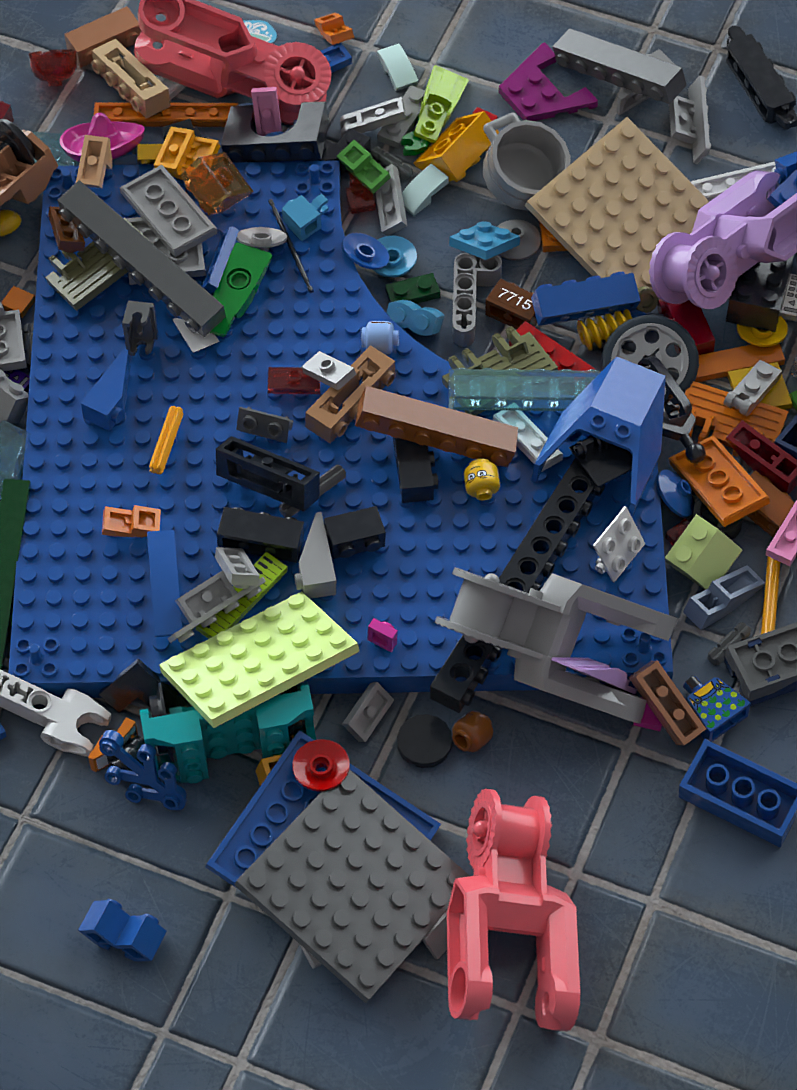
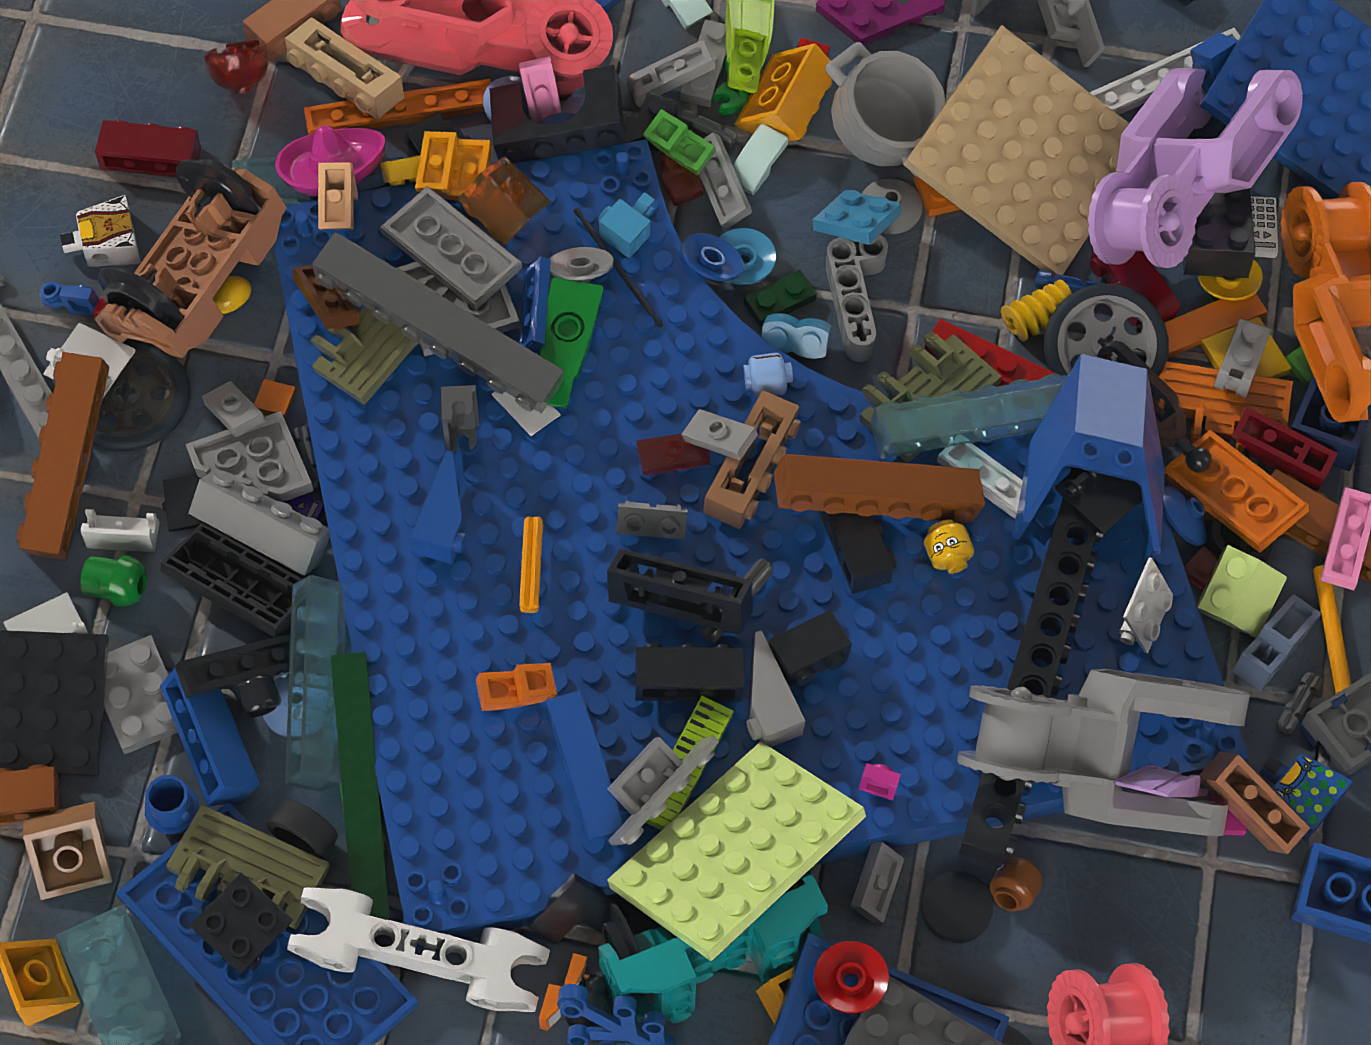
camera: 15 degrees left, 5 degrees up
(237, 567) = (676, 728): light grey plate -> none
(510, 305) = (915, 297): reddish brown brick -> none
(585, 299) = (1007, 276): blue brick -> none
(648, 299) = (1076, 261): olive tile -> none

